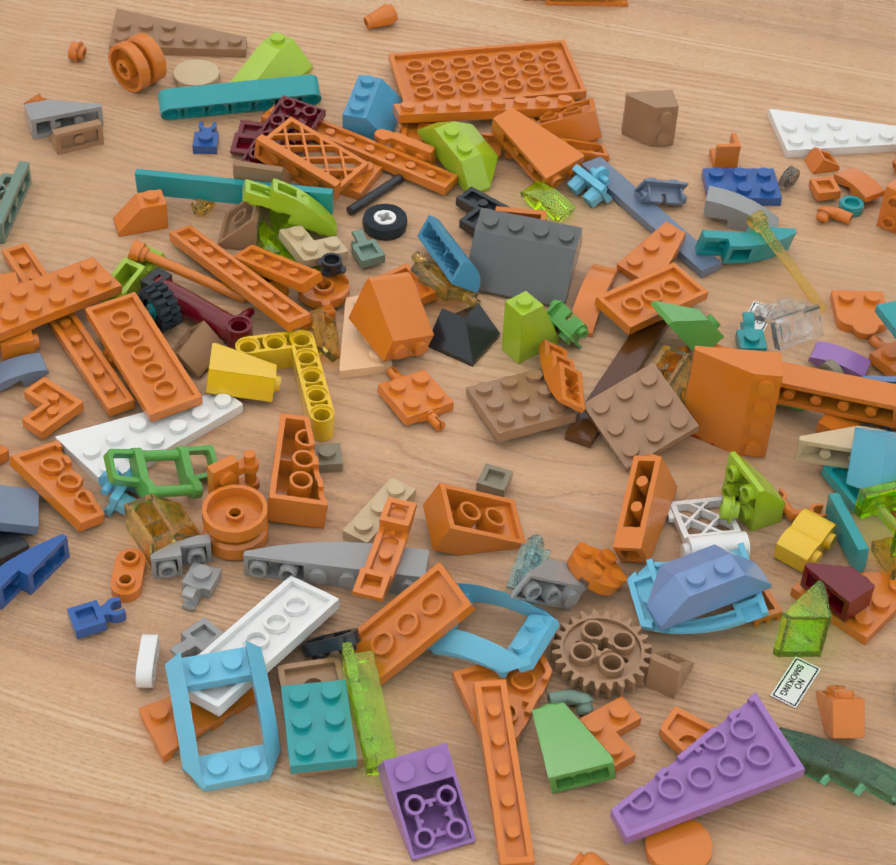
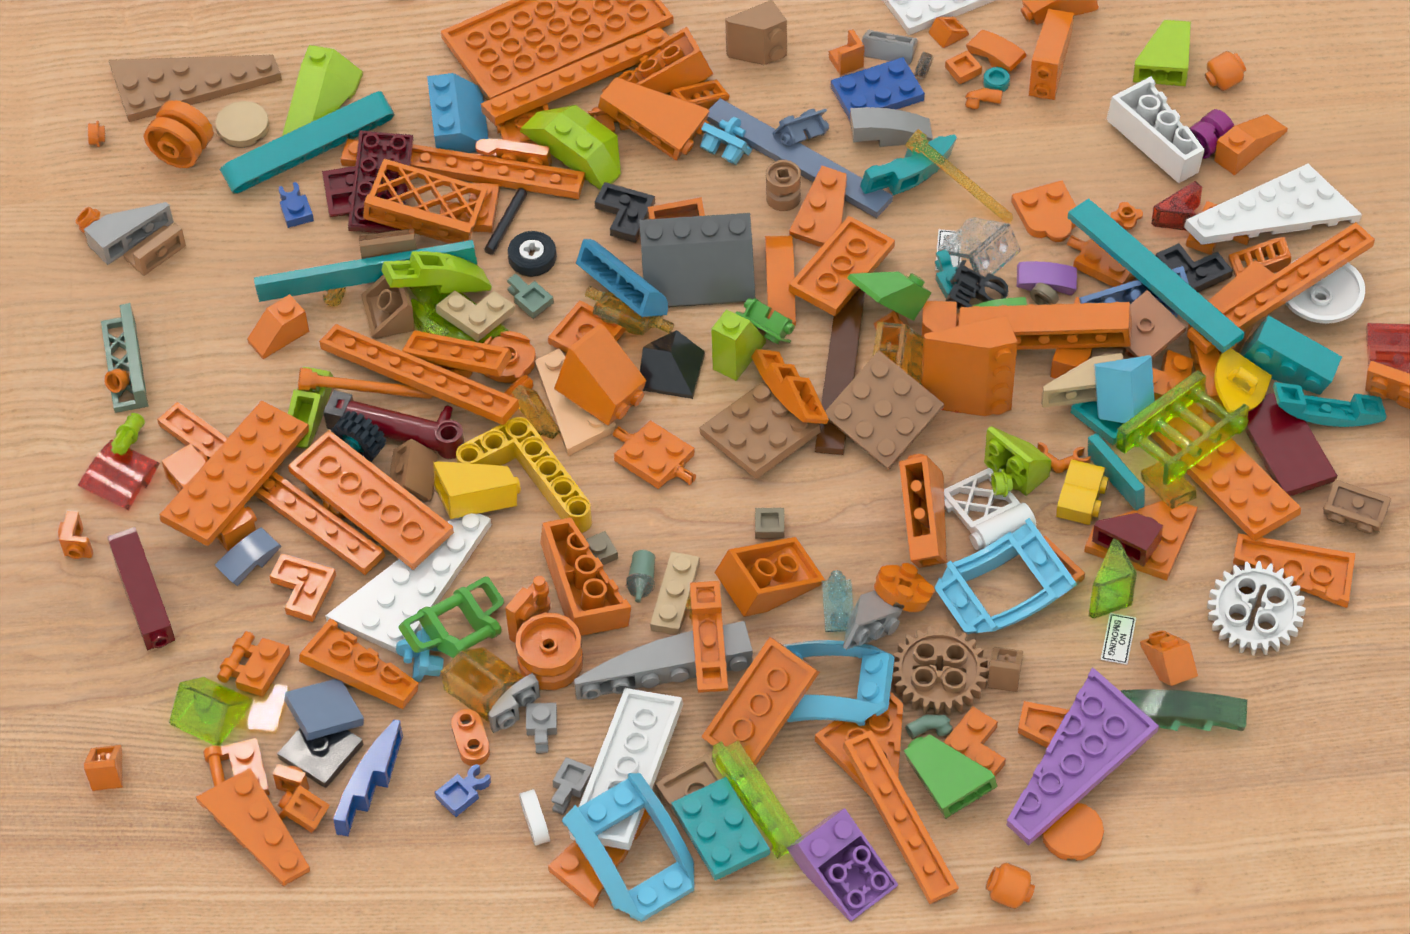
camera: 15 degrees left, 10 degrees up
(321, 646) = (688, 746): black plate -> none
(331, 264) = (507, 323): black plate -> none
(353, 489) = (641, 574): none -> piece
(545, 197) = (682, 169): clear neon green slope -> none
(625, 227) = (783, 185): none -> medium nougat wheel
(702, 584) = (1008, 575): medium blue wedge -> none
(759, 157) = (888, 46): none -> light grey slope
(762, 340) = (968, 288): none -> black piece

